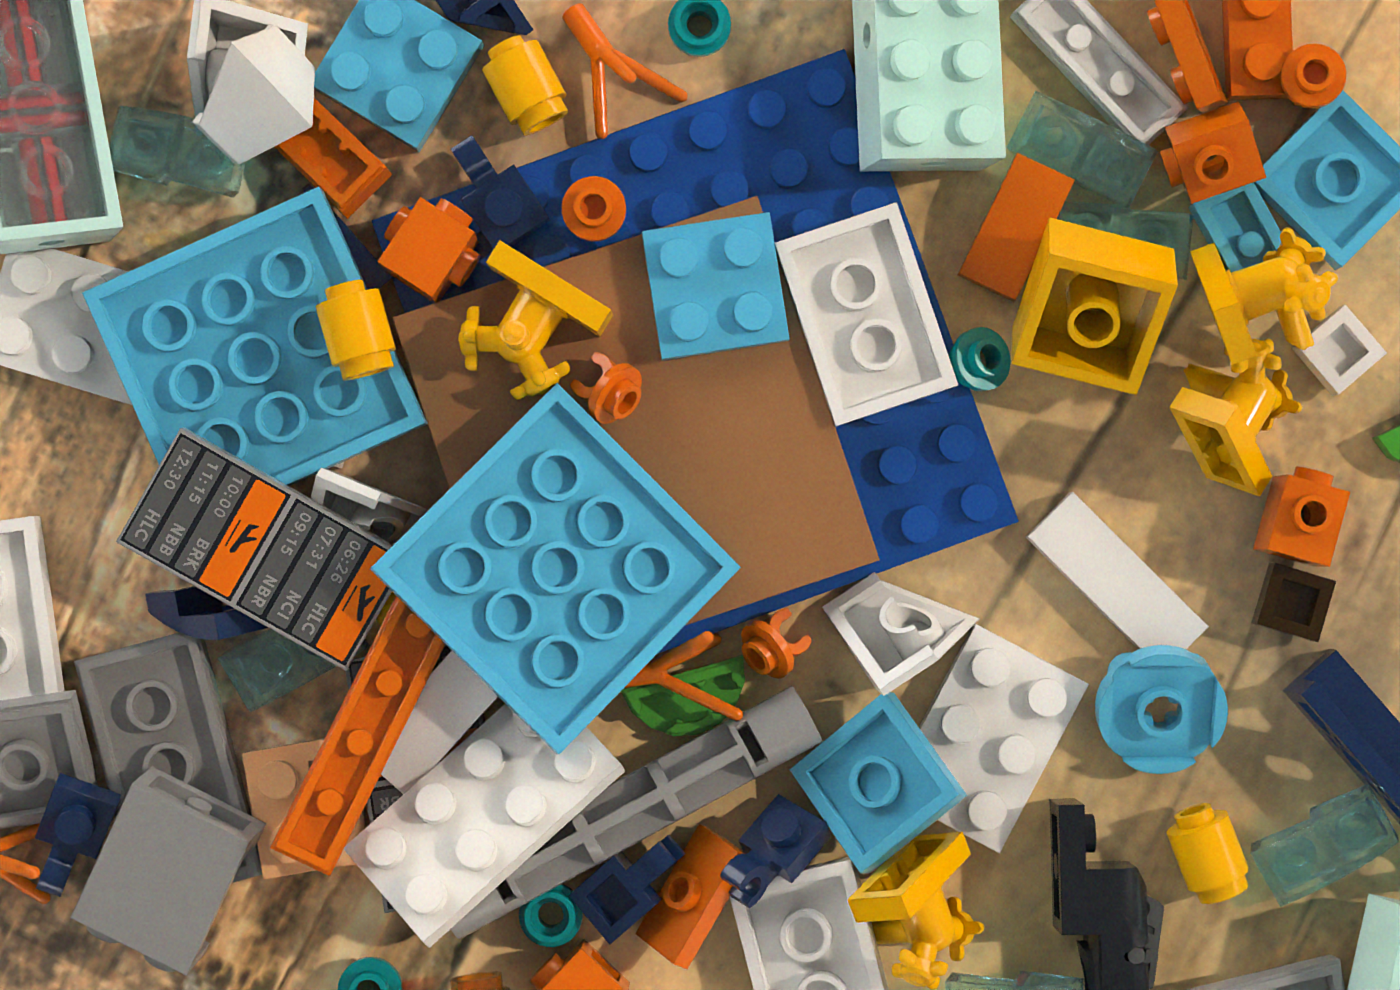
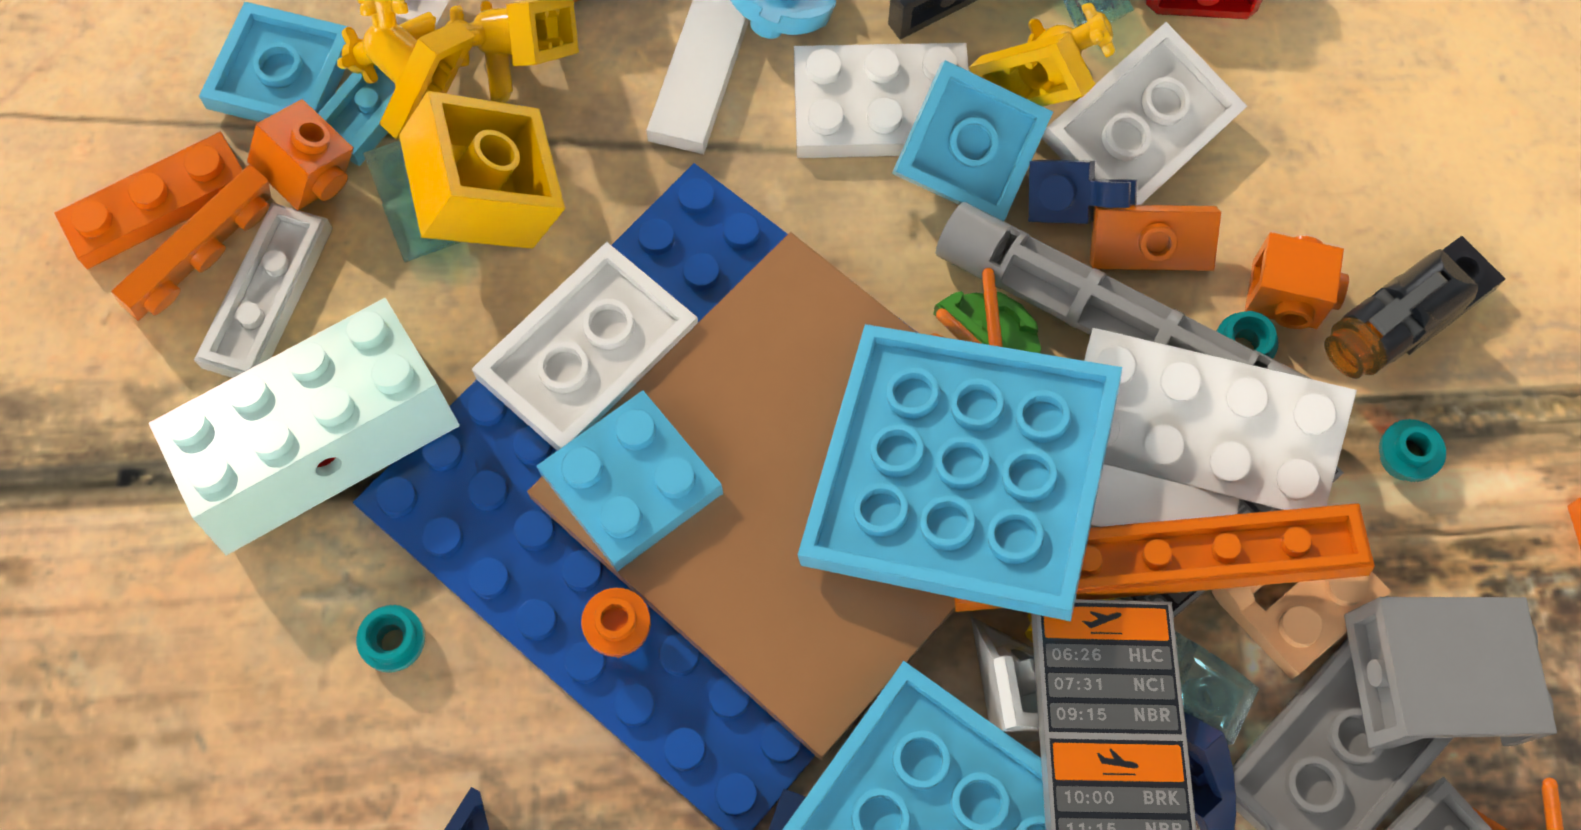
camera: 120 degrees left, 20 degrees down
(74, 824) = (1471, 793): dark blue plate -> none
(356, 330) = (858, 762): yellow brick -> none
(430, 248) = (736, 755): orange brick -> none
(502, 201) = (656, 720): dark blue plate -> none
(525, 84) = (529, 763): yellow brick -> none
(530, 321) = (753, 616): yellow piece -> none
(603, 53) = (460, 712): orange plant -> none
(614, 393) = (778, 506): orange plate -> none
(622, 891) = (1188, 286): dark blue plate -> none
(767, 649) = (917, 286): orange plate -> none
(894, 630) = (844, 195): white slope -> none
(967, 362) = (572, 247): teal plate -> none
(1014, 227) = (447, 276): orange slope -> none
(1082, 149) = (347, 258): clear light blue slope -> none
(1313, 76) = (198, 118): orange plate -> none

